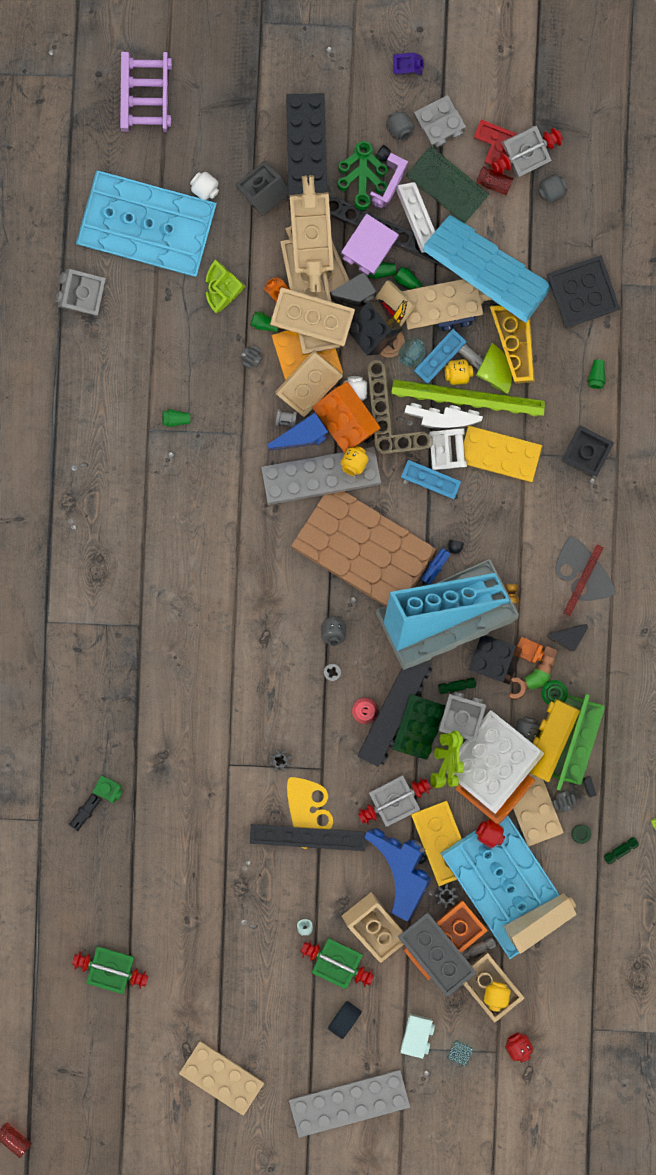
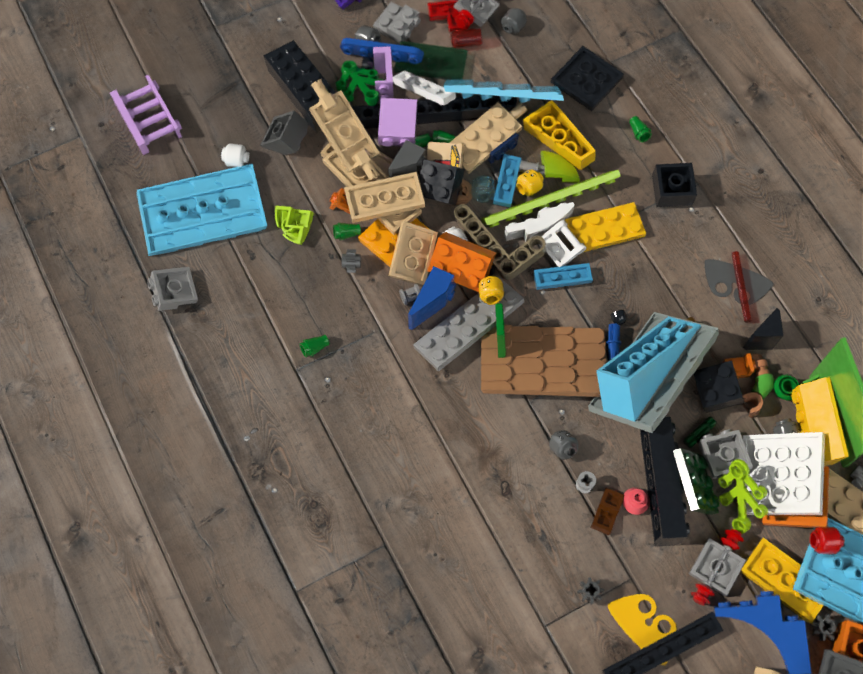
camera: 30 degrees left, 20 degrees down
(336, 705) = (607, 511): none -> reddish brown slope
(338, 504) = (500, 330): none -> green tile
(391, 139) = (365, 48): none -> blue piece

